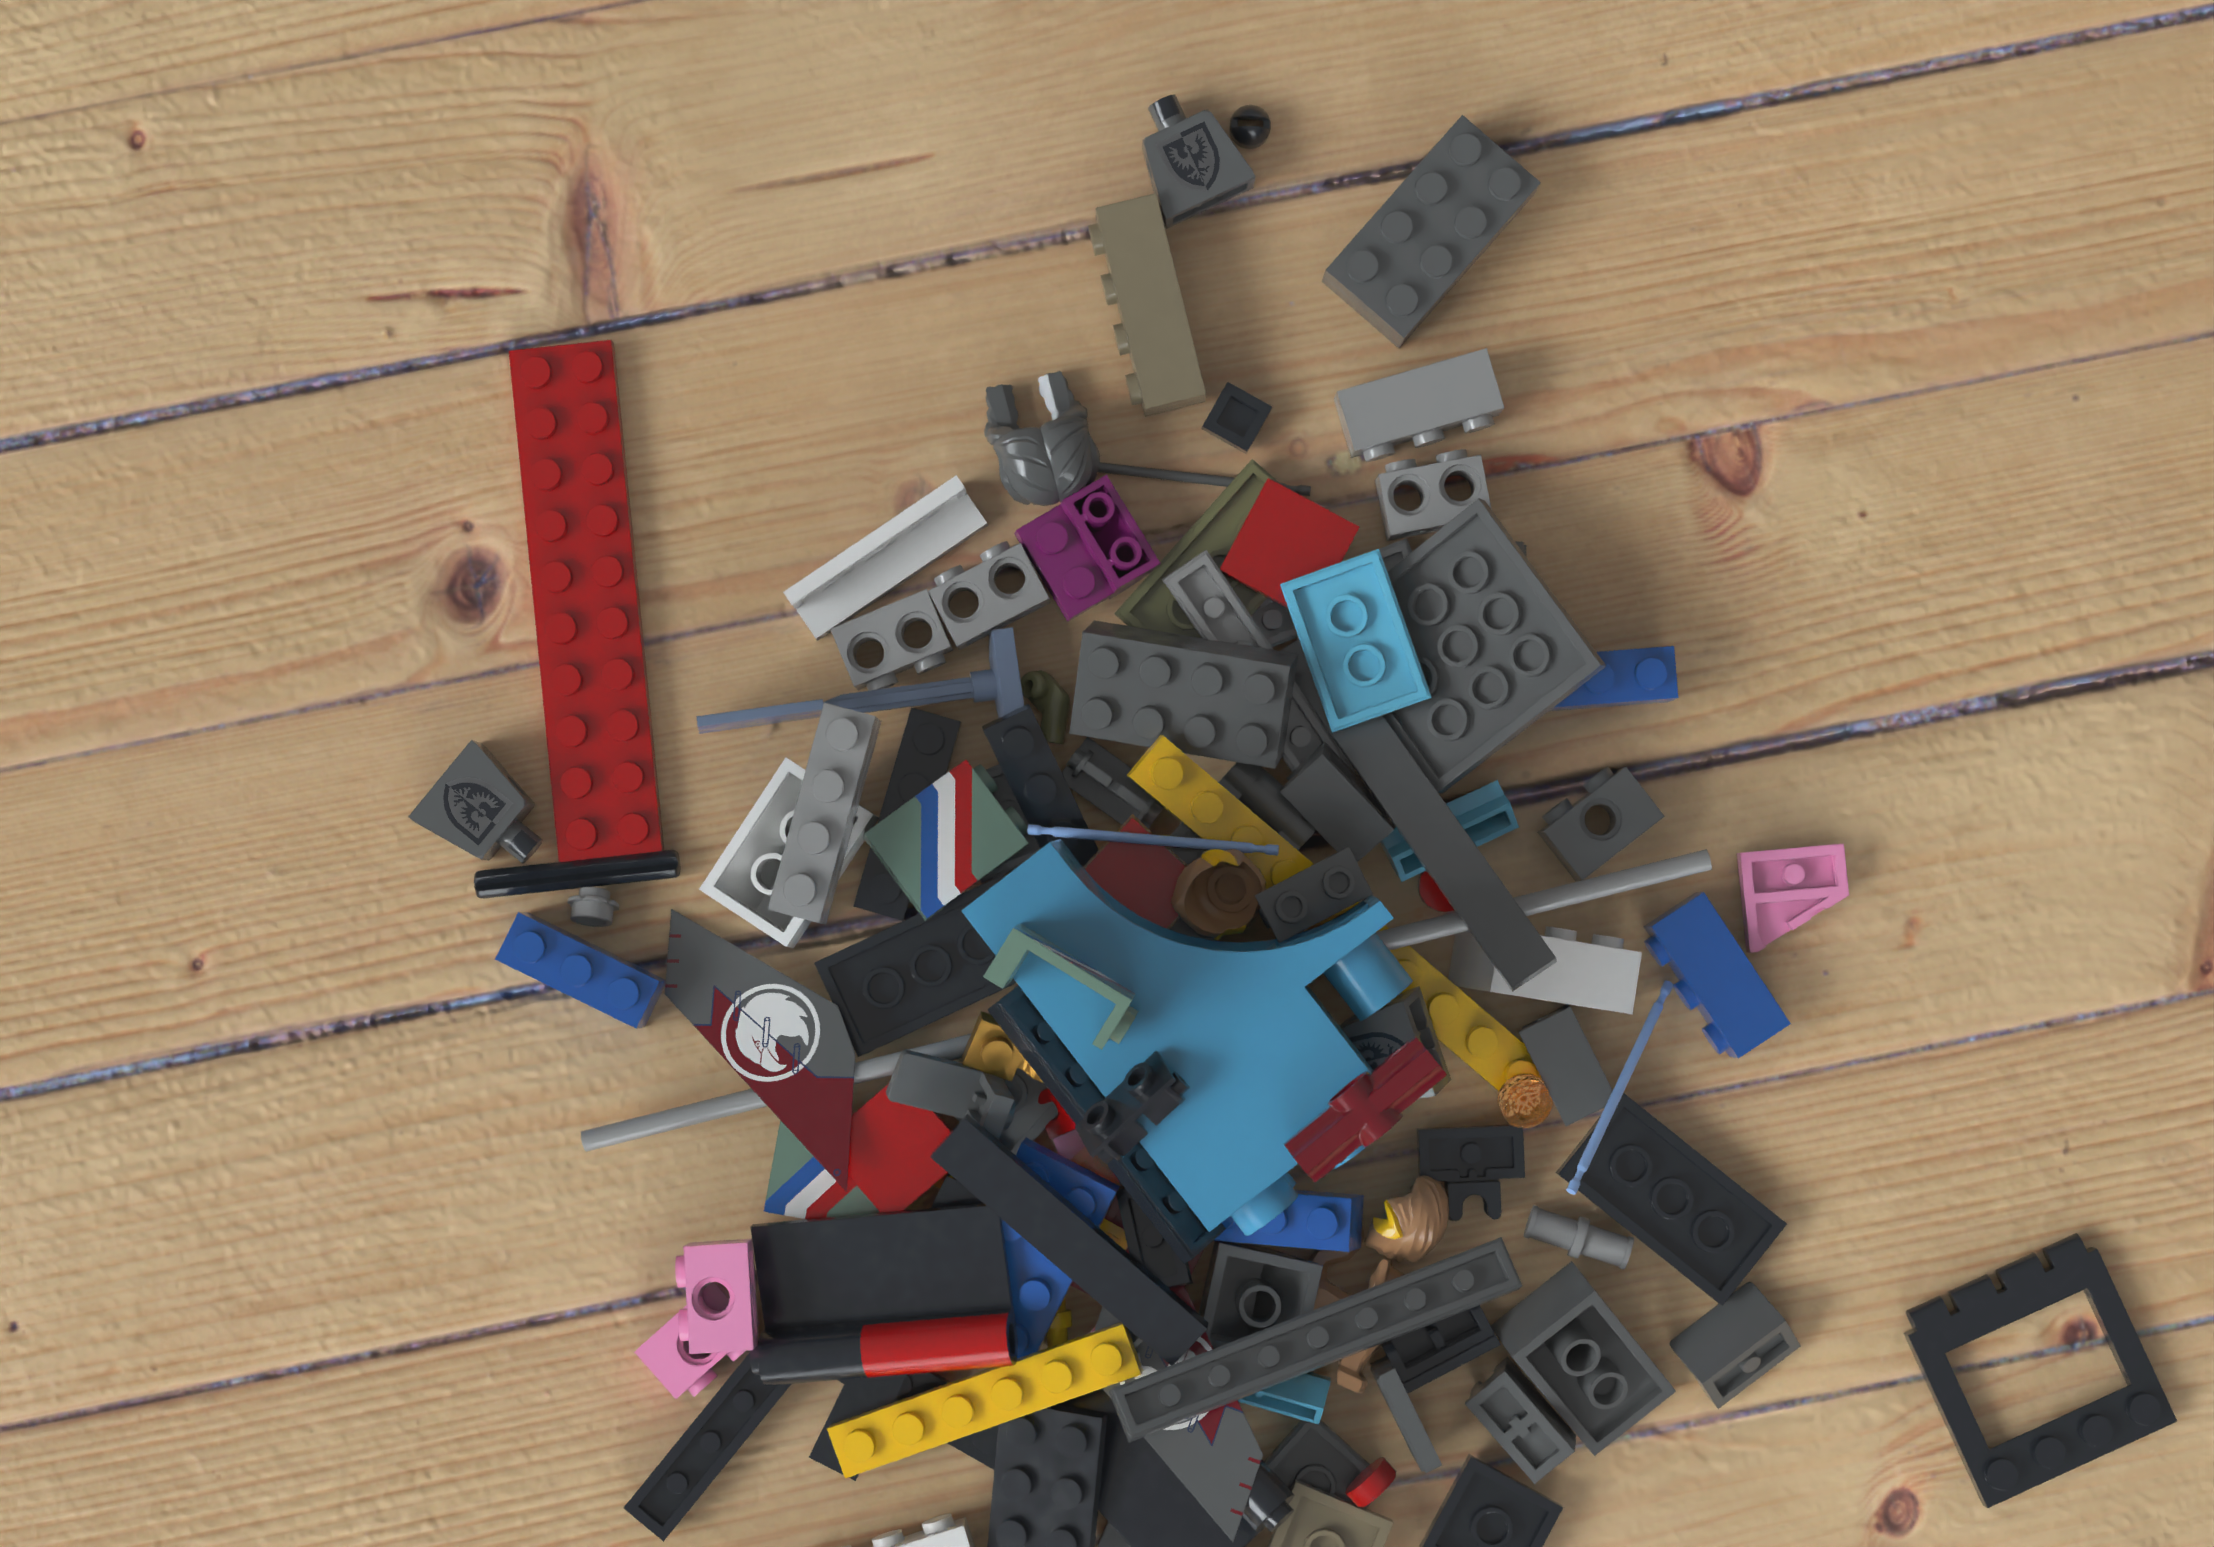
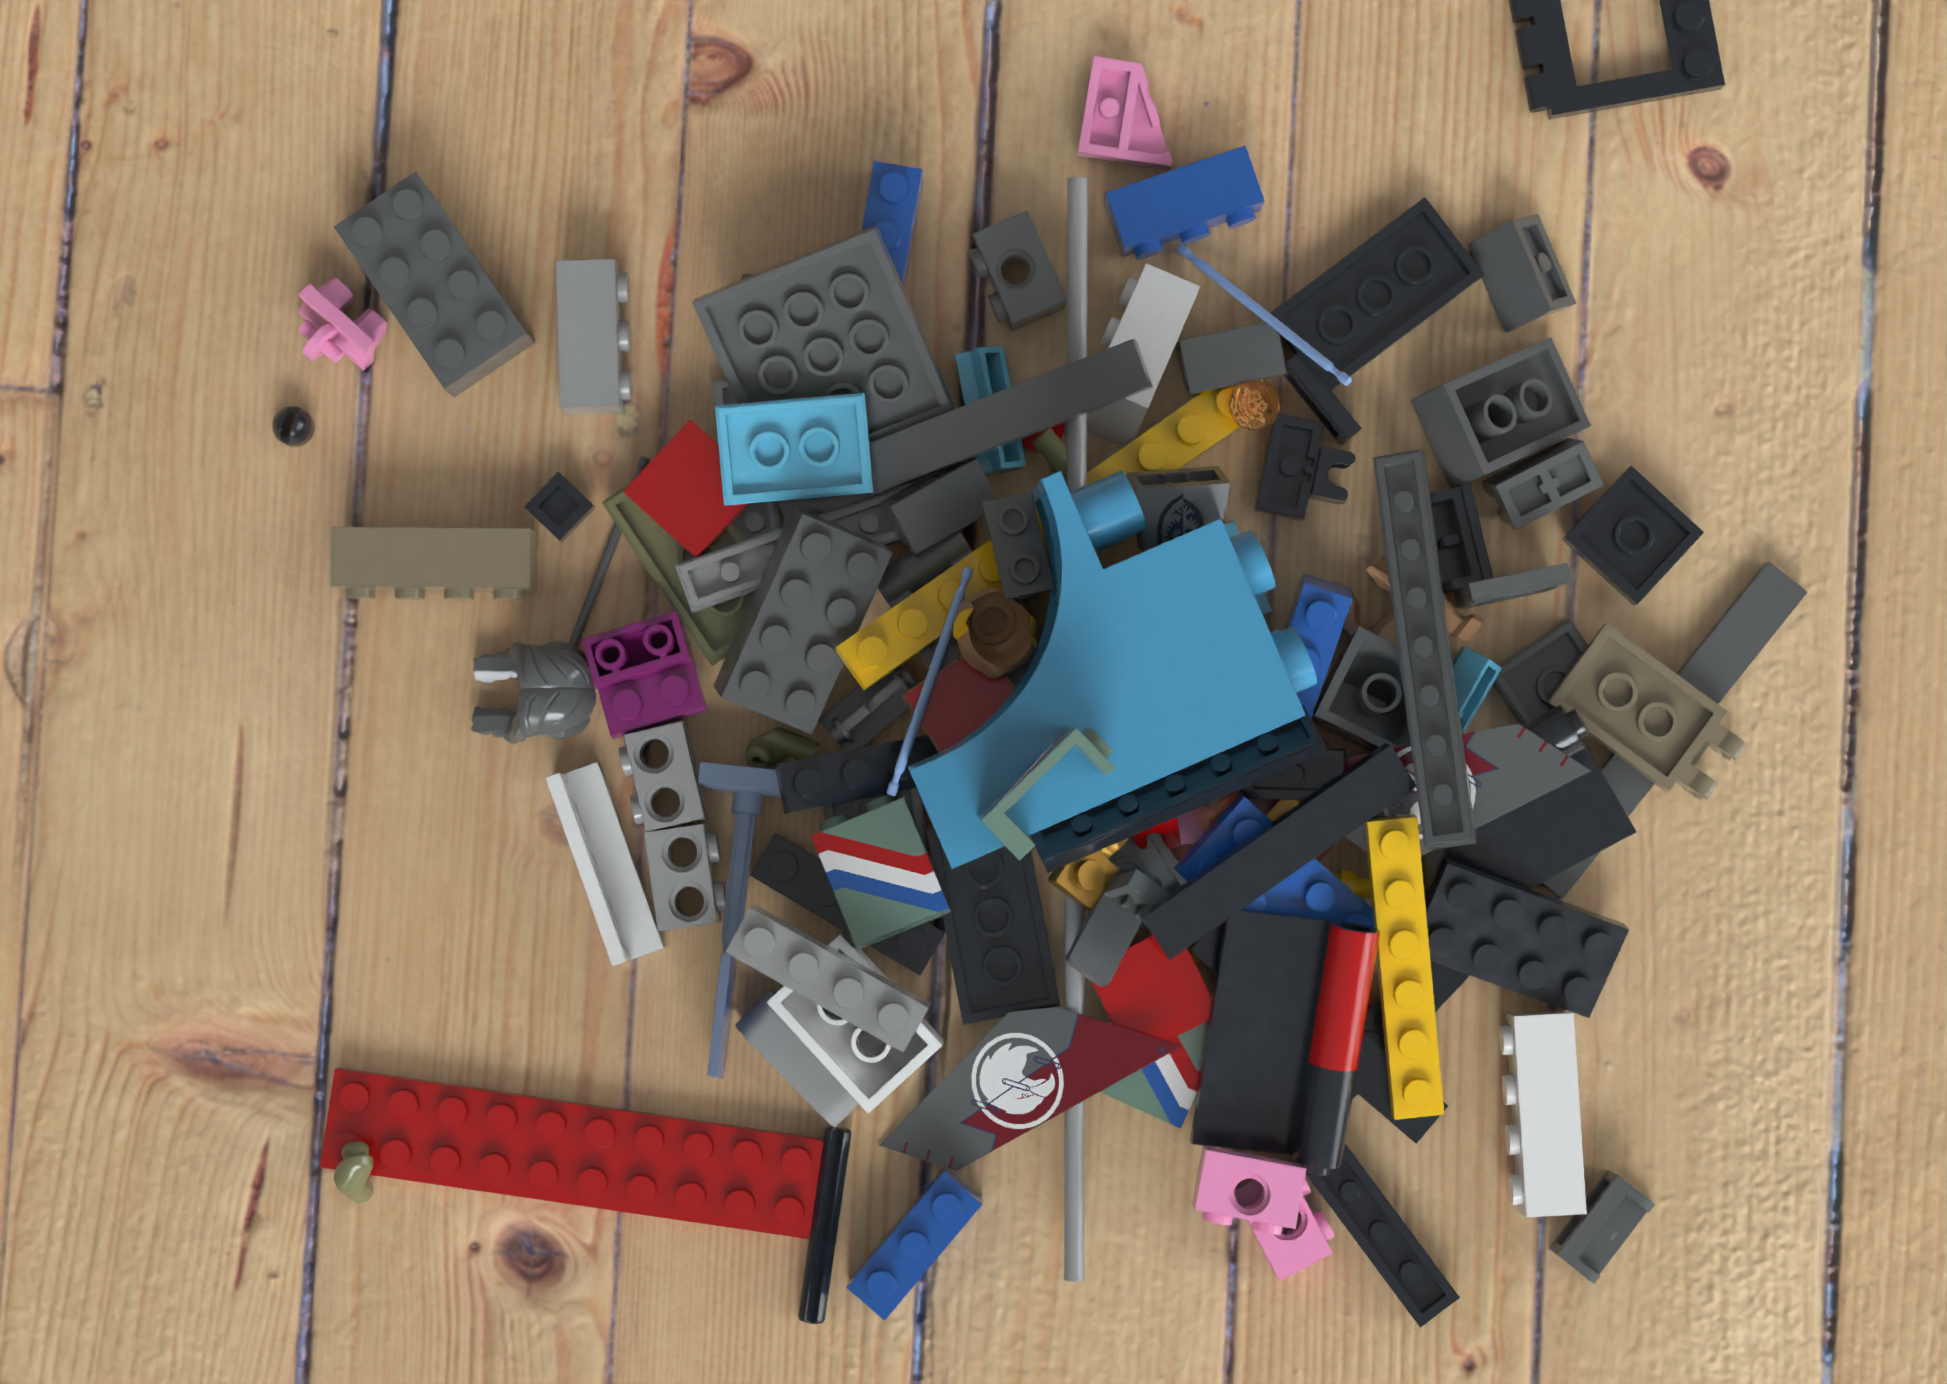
camera: 75 degrees left, 0 degrees up
(479, 807) = (739, 1301): dark grey torso -> none
(512, 386) = (354, 1171): none -> olive arm
(592, 907) = (859, 1217): light grey plate -> none
(733, 802) = (795, 1061): none -> light grey beam
(1112, 1125) = (1184, 779): black hinge -> none
(1192, 162) = (311, 487): dark grey torso -> none
(1355, 142) = (332, 331): none -> bright pink hips
(1365, 1109) = (1229, 541): dark red piece -> none
(1371, 1482) = (1566, 633): red tile -> none
(1413, 1222) = (1339, 533): medium nougat hair -> none
(1421, 908) = (1053, 451): none -> olive arm
(1435, 506) = (689, 345): light grey brick -> none
(1548, 1168) = (1320, 399): none -> black tile
(1579, 1237) = (1390, 387): light grey pin -> none

